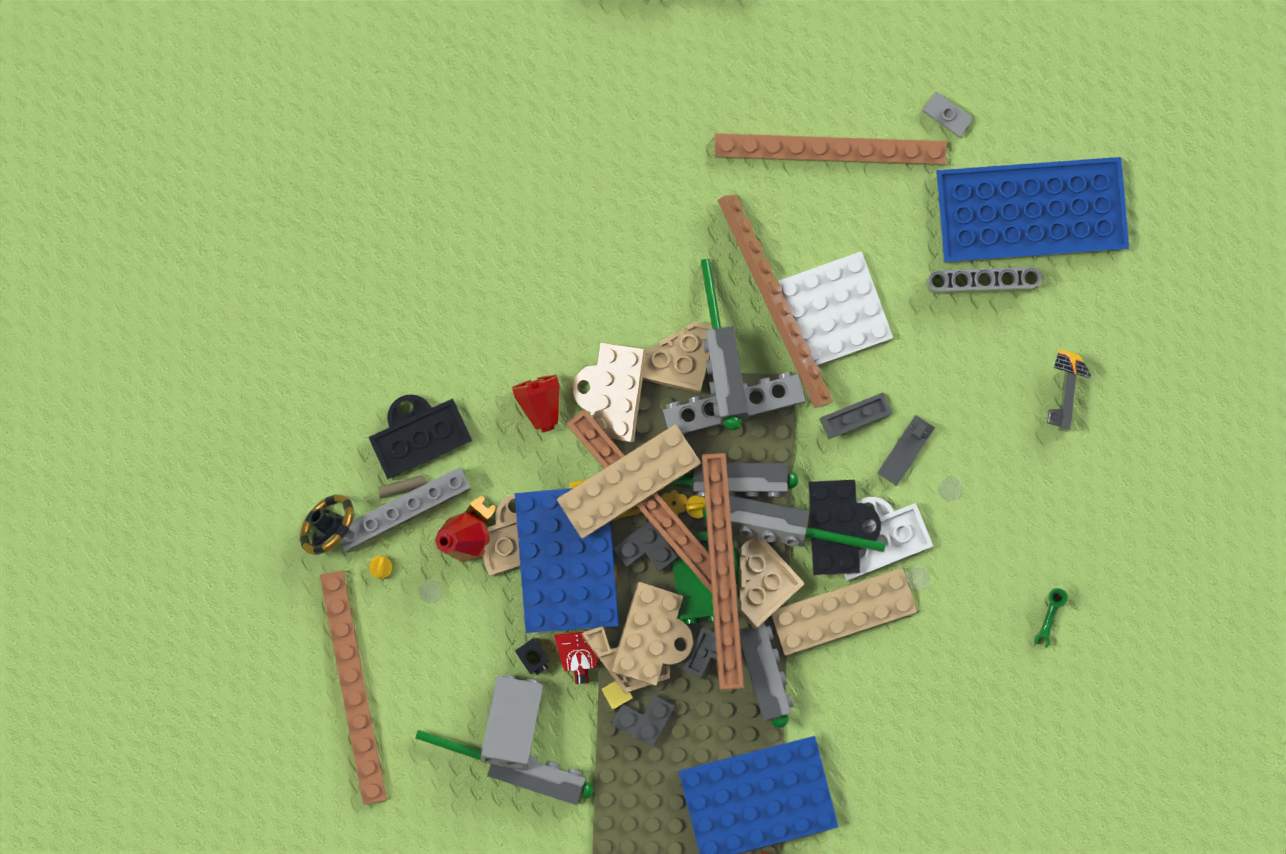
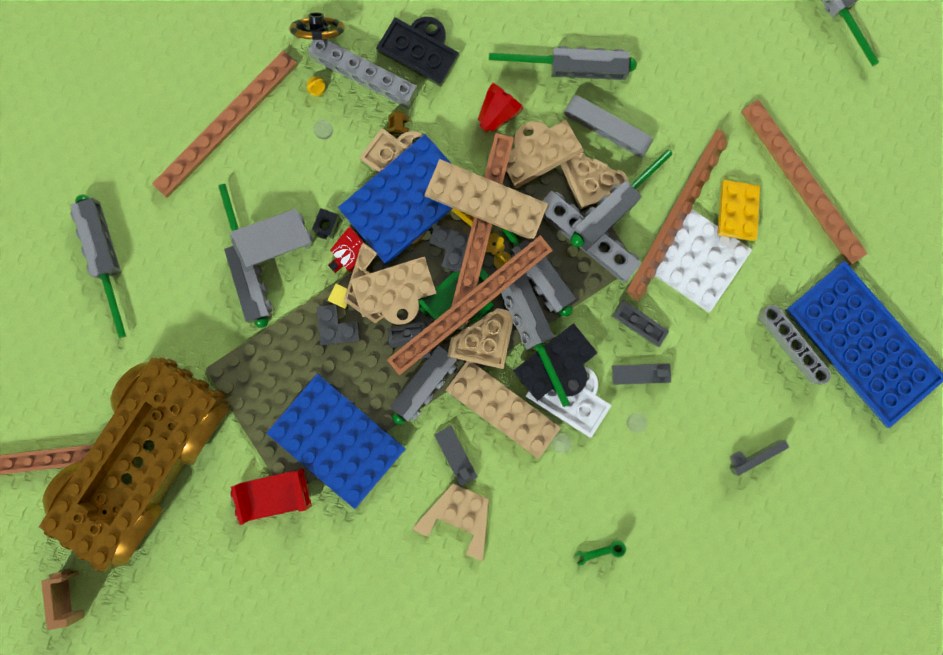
camera: 55 degrees right, 0 degrees up
(401, 486) = (373, 58): dark tan piece -> none
(463, 537) = (370, 120): red cone -> none
(549, 285) = (579, 62): none -> piece
(635, 303) = (608, 126): none -> light grey beam
(813, 236) = (738, 210): none -> yellow plate
(856, 691) = (455, 455): none -> dark grey hinge
(912, 724) = (461, 509): none -> tan wing
(947, 114) = (885, 242): light grey plate -> none
(1071, 363) = (784, 444): sticker -> none

